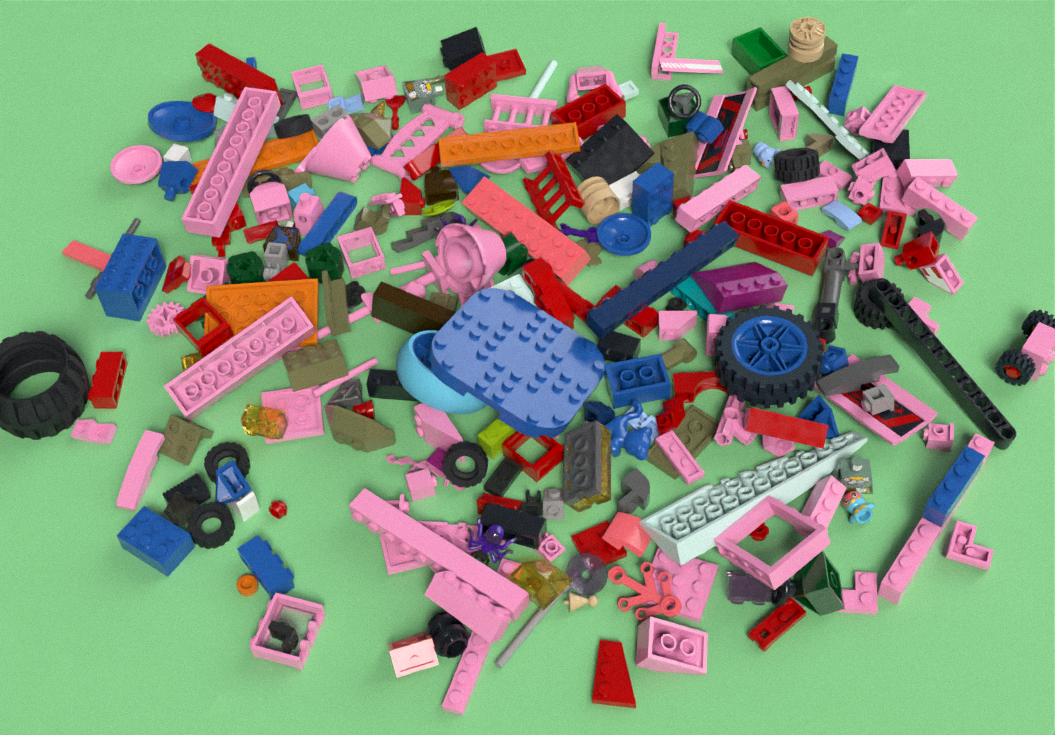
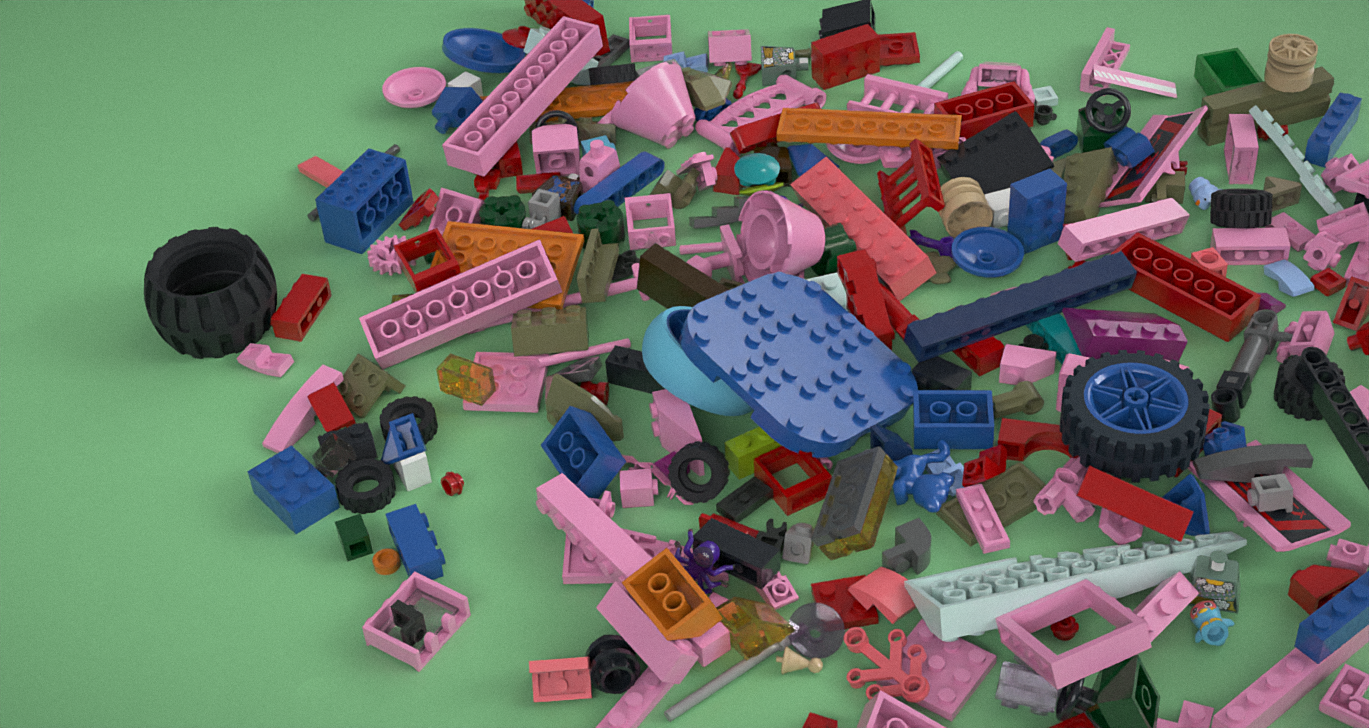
camera: 15 degrees right, 10 degrees down
(165, 467) = (331, 408): none -> red panel
(216, 571) = (354, 537): none -> dark green brick
(373, 465) = (583, 452): none -> blue brick
(432, 194) = (757, 169): none -> teal dish
(482, 579) = (672, 598): none -> orange slope
(632, 105) = (1044, 114): none -> pearl dark grey plate
(651, 128) = (1060, 142): none -> blue beam
(924, 463) = (1318, 585): none -> red slope

